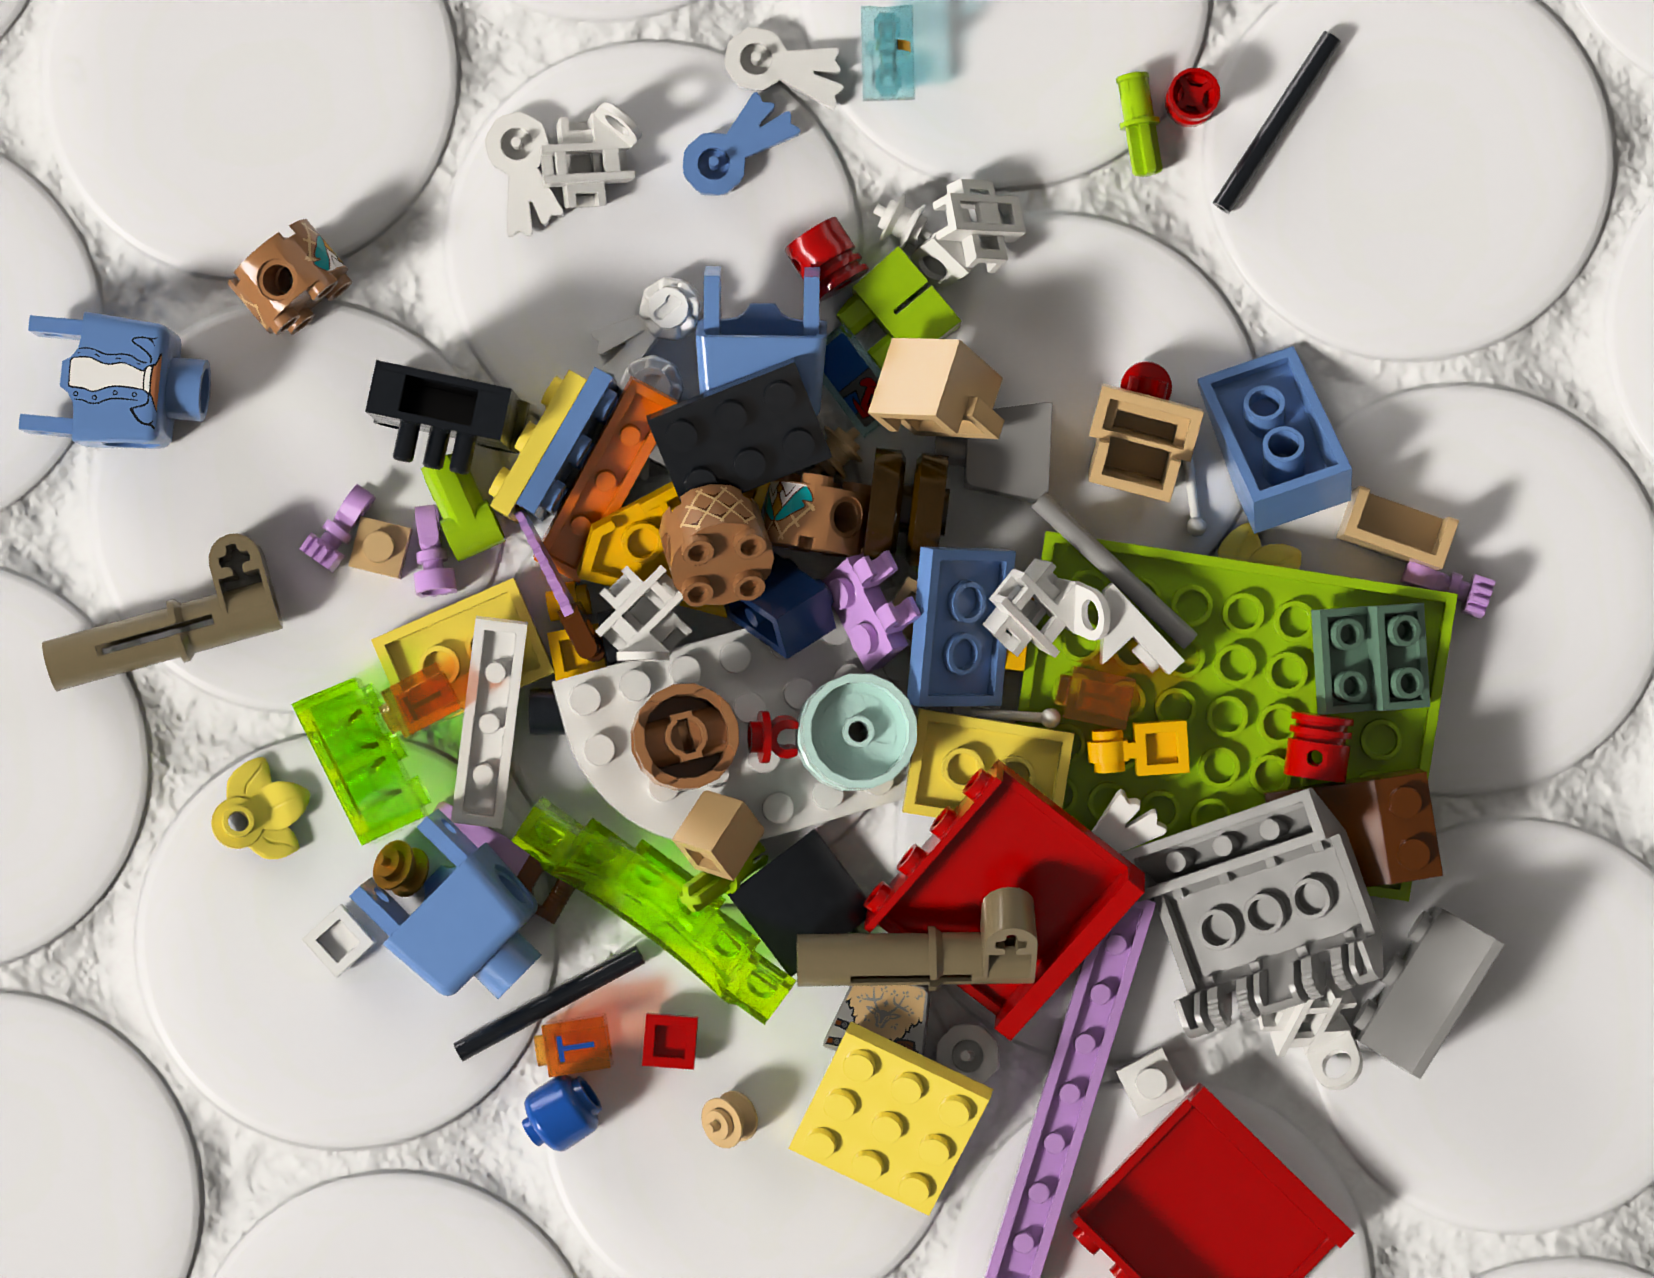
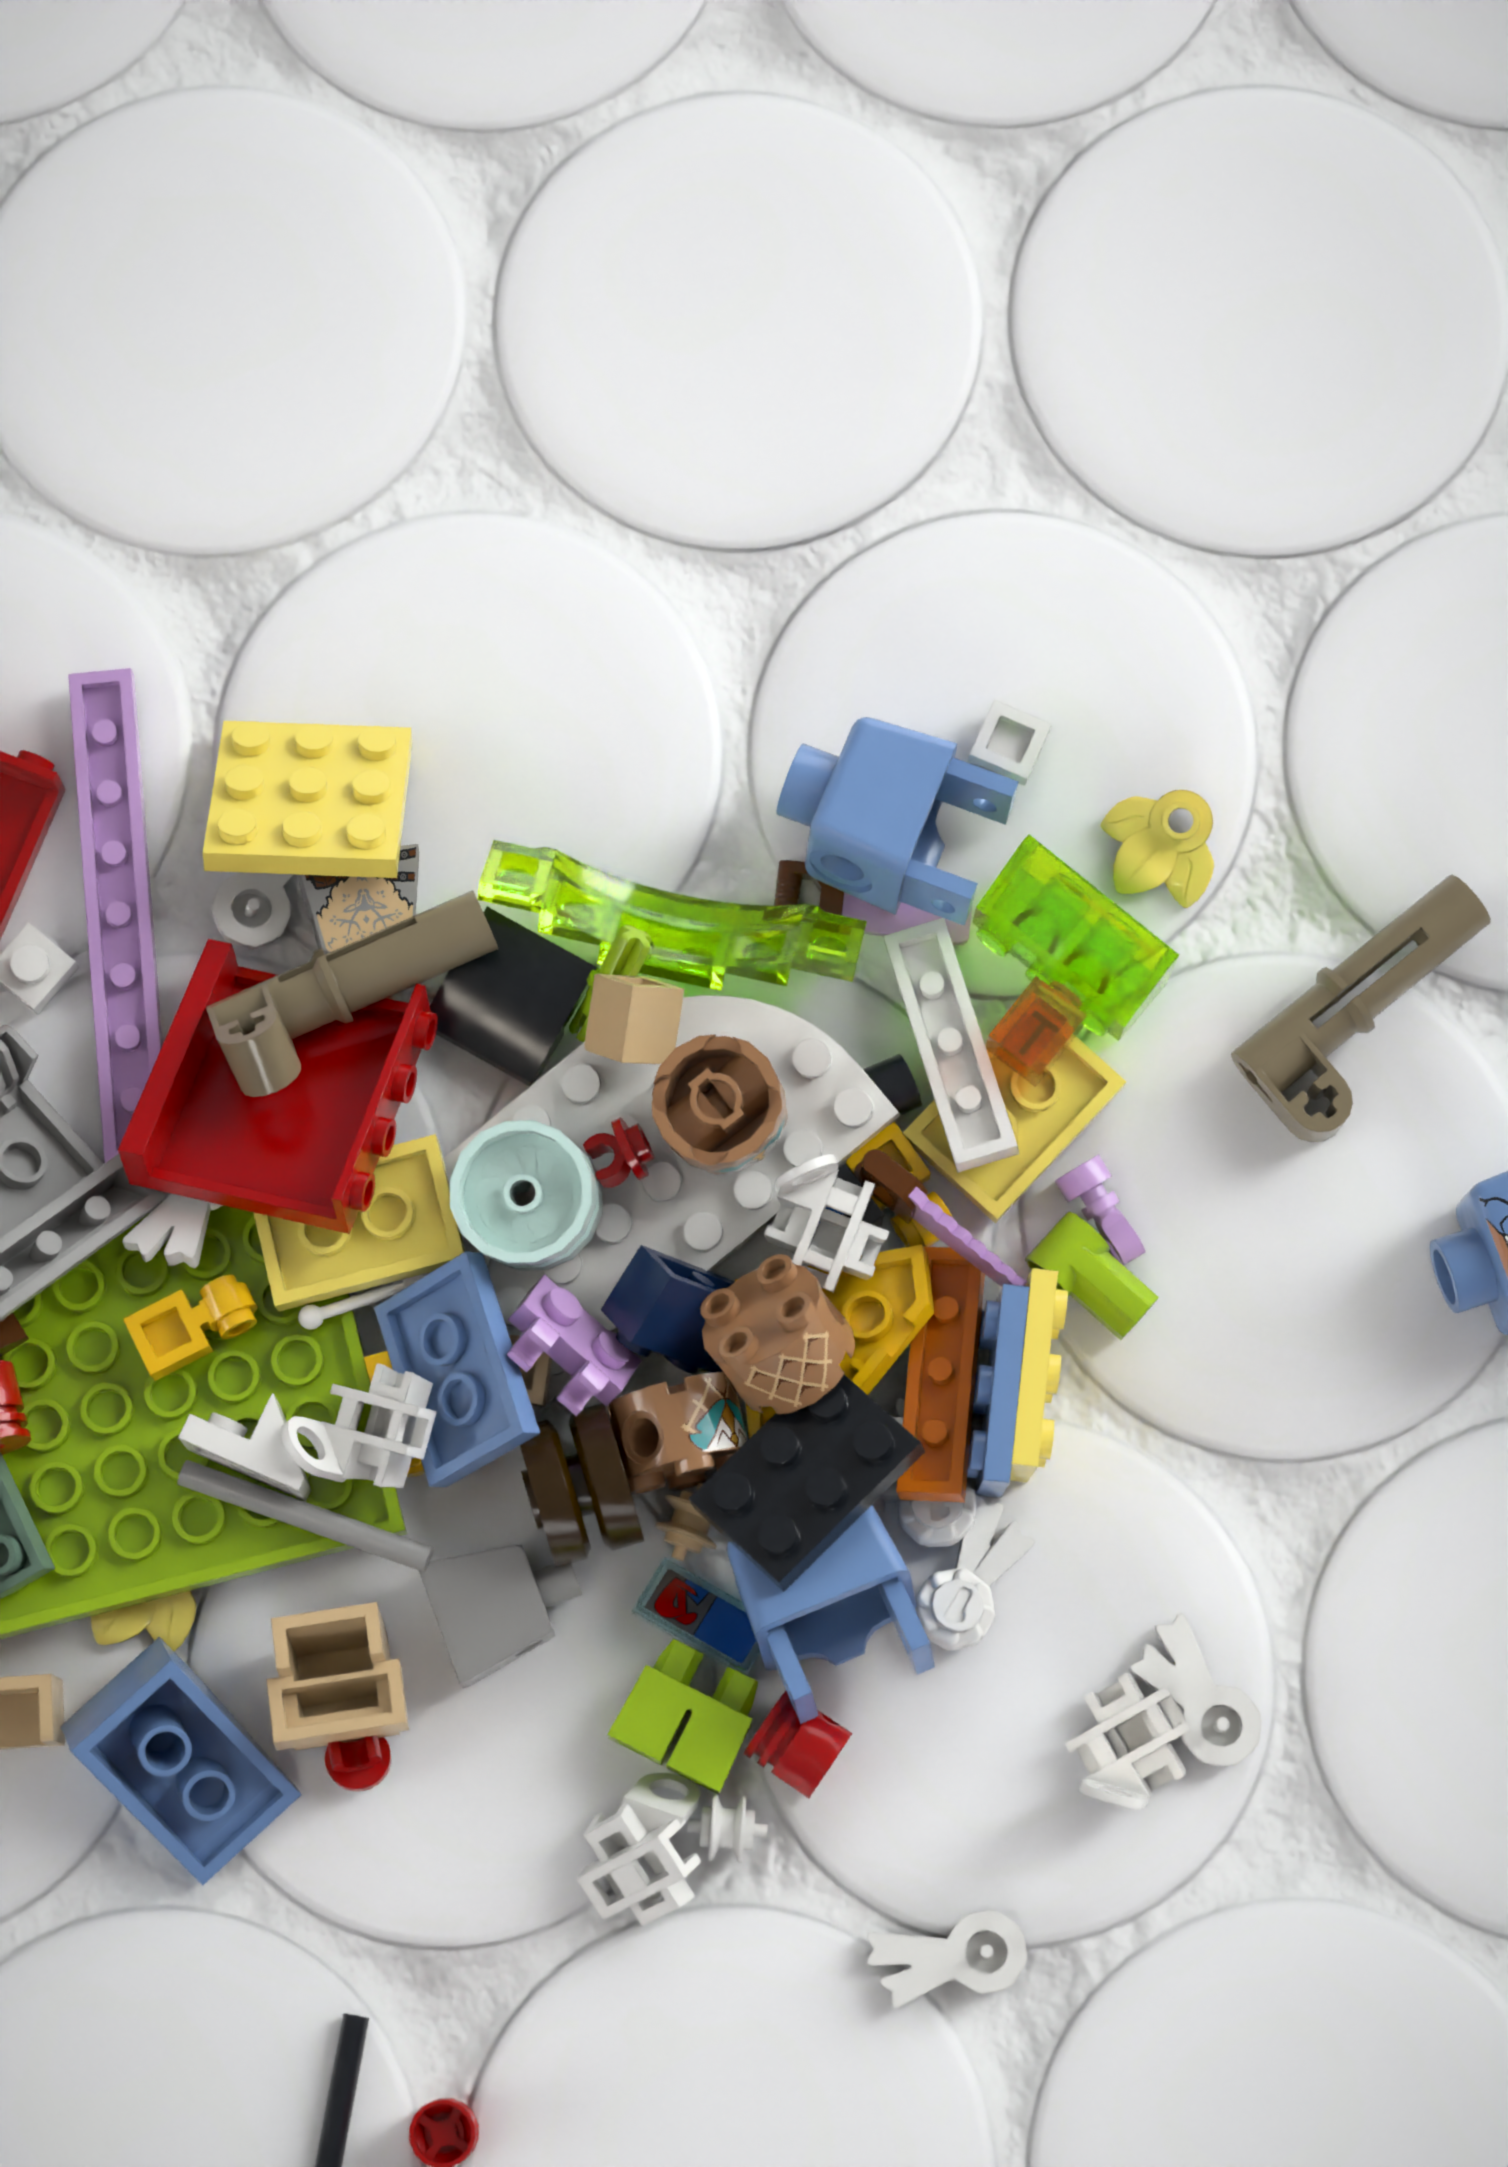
camera: 150 degrees right, 10 degrees down
(267, 272) = (1407, 1445): medium nougat brick -> none
(337, 531) = (1225, 1161): lavender piece -> none
(380, 547) = (1163, 1193): tan plate -> none
(401, 868) = (976, 846): pearl gold wheel -> none
(444, 408) = (1160, 1360): black piece -> none
(549, 1003) = (746, 775): black piece -> none
(561, 1112) = (679, 659): blue head -> none
(574, 1045) = (696, 737): clear orange brick -> none
(670, 1041) = (593, 787): red plate -> none
(717, 161) = (978, 1808): medium blue piece -> none
(729, 1119) = (490, 729): tan wheel -> none
(887, 53) = (832, 2024): clear light blue hips -> none
(937, 390) = (599, 1630): tan plate -> none
(1095, 696) = (266, 1359): clear orange brick -> none
(1140, 124) = (494, 2073): lime axle -> none
(1196, 525) = (233, 1622): white hinge -> none

